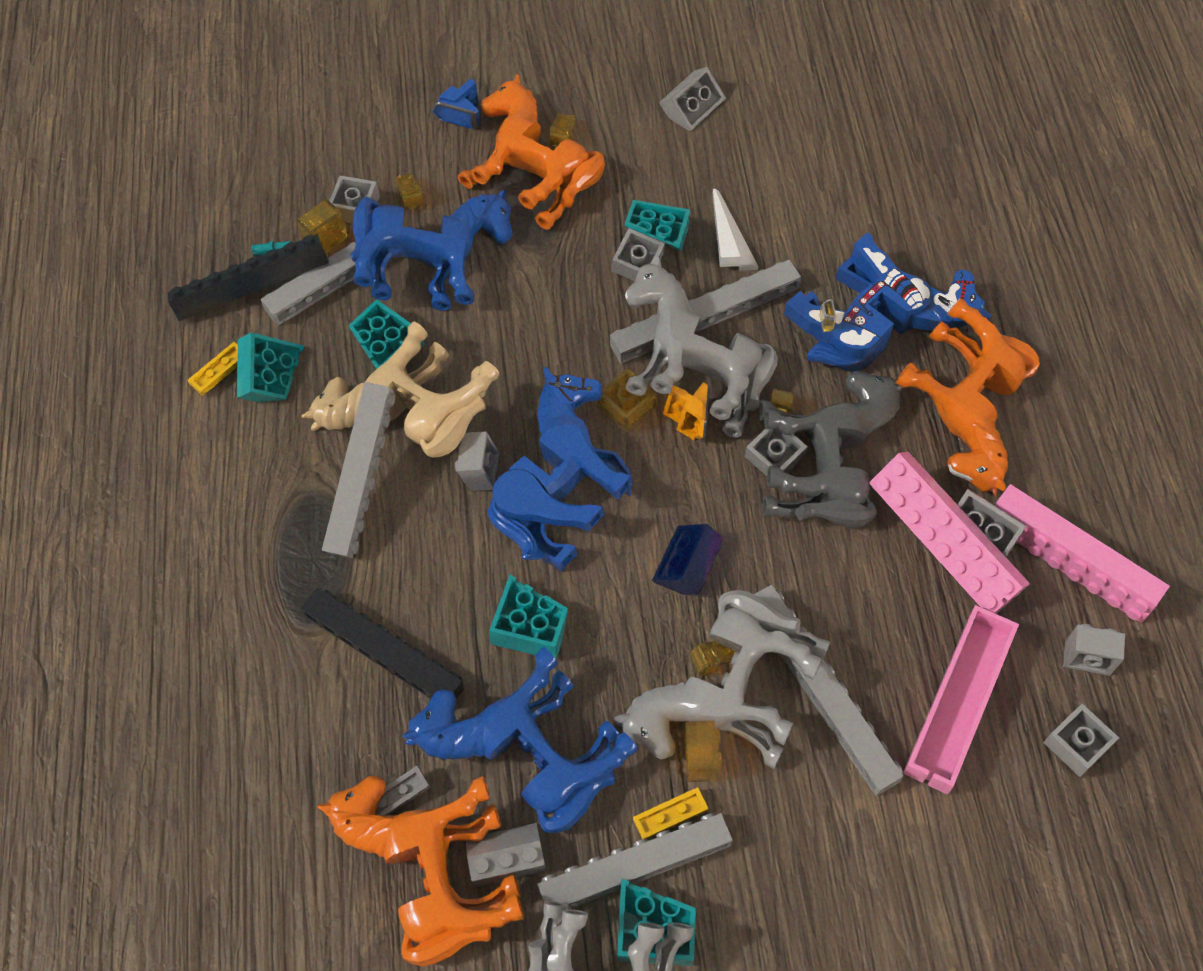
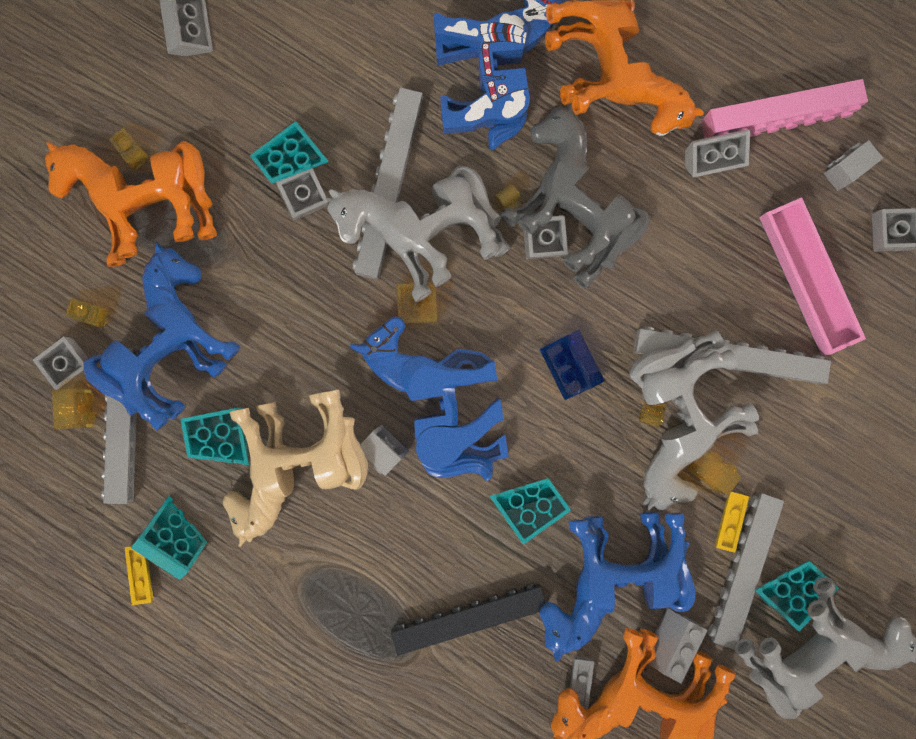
camera: 55 degrees left, 25 degrees up
(247, 277) = (74, 499): black brick -> none
(261, 249) = (56, 457): teal pin -> none
(358, 470) = (323, 541): light grey brick -> none
(459, 106) = (36, 212): blue piece -> none
(689, 410) = (469, 267): light orange piece -> none
(731, 244) = (347, 114): white wedge -> none
(827, 316) = (484, 111): piece -> none
(948, 533) = (704, 181): bright pink piece -> none

